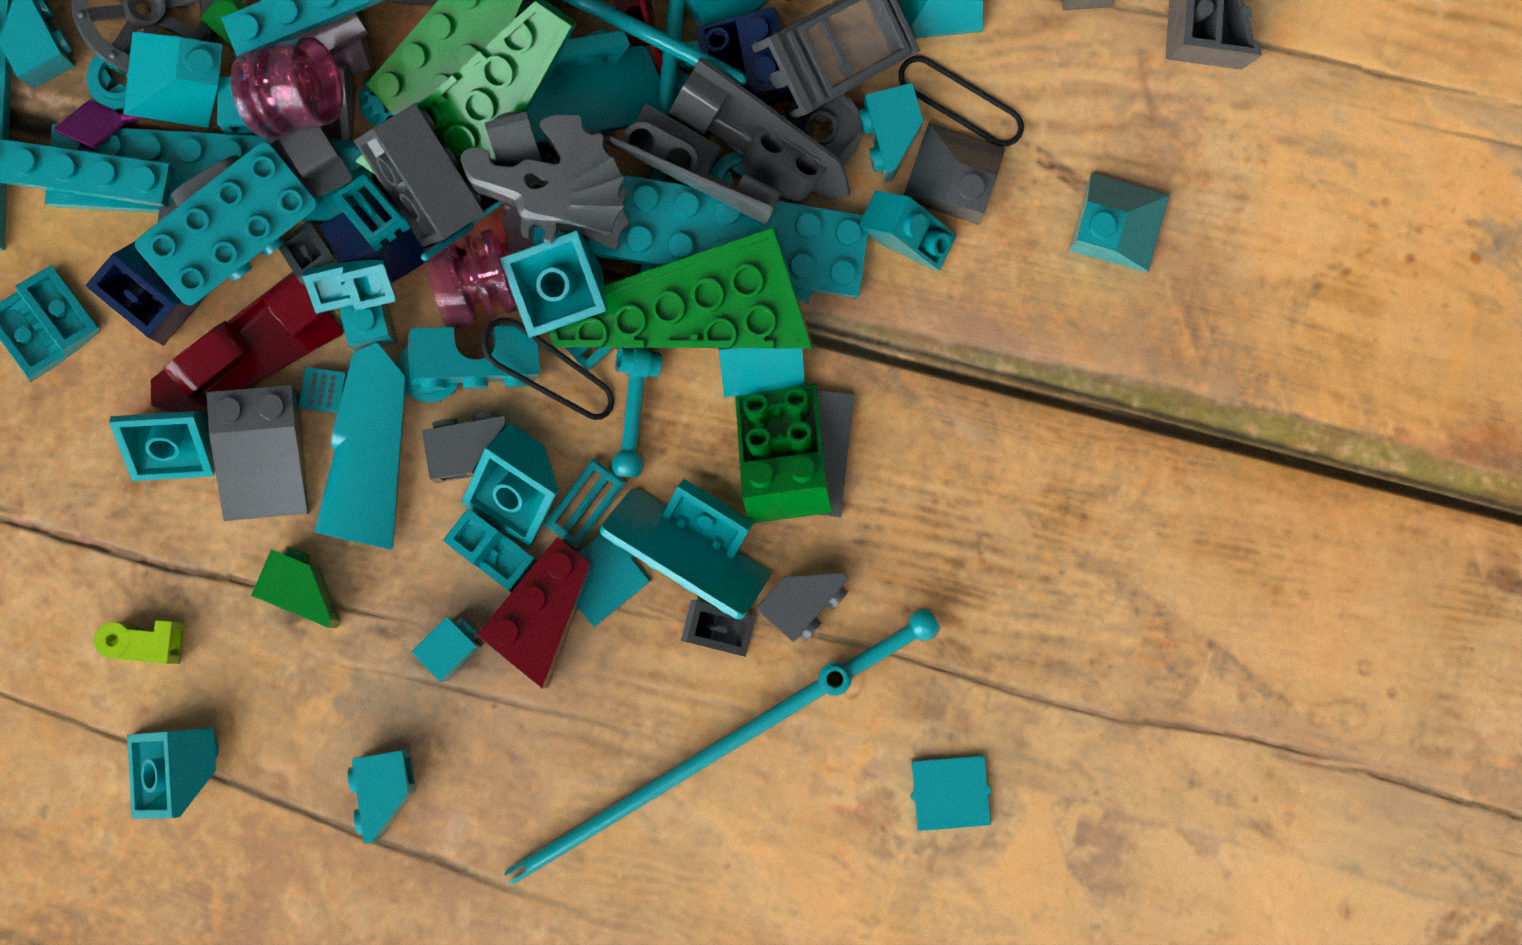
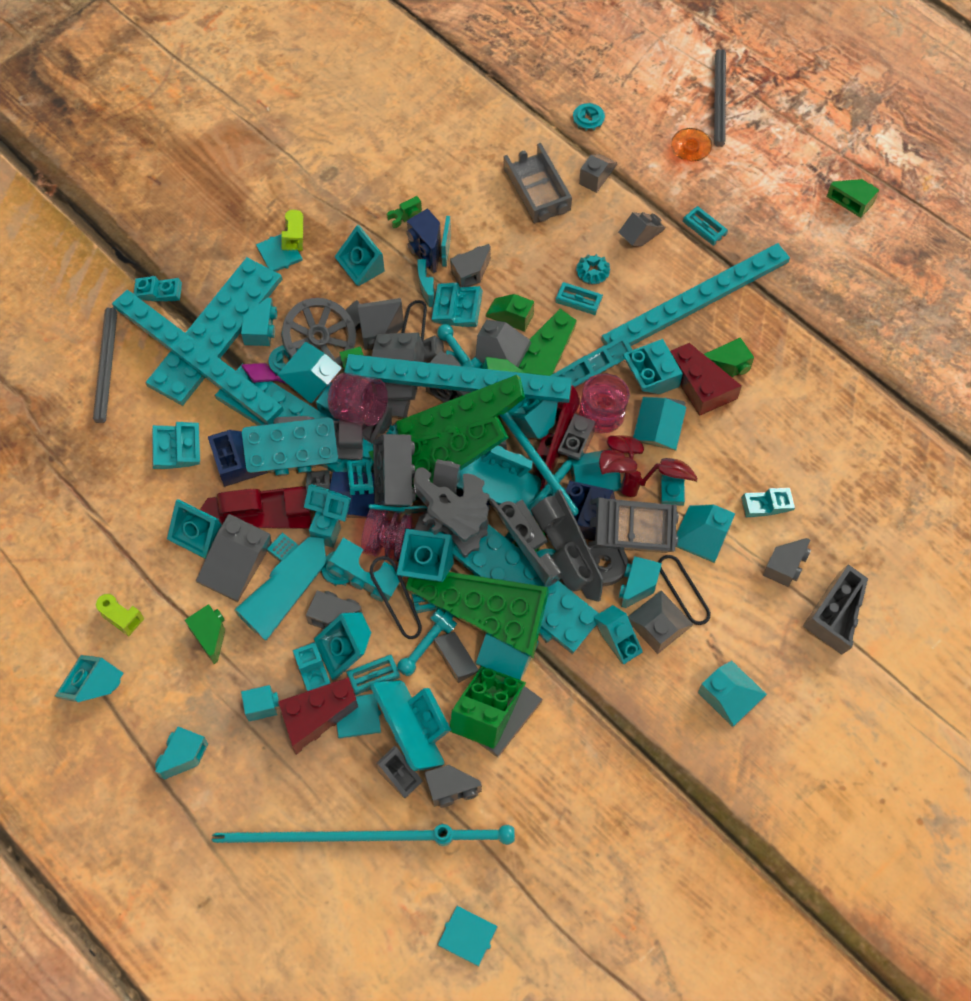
camera: 30 degrees right, 20 degrees down
(689, 404) = (455, 656): none -> dark grey slope

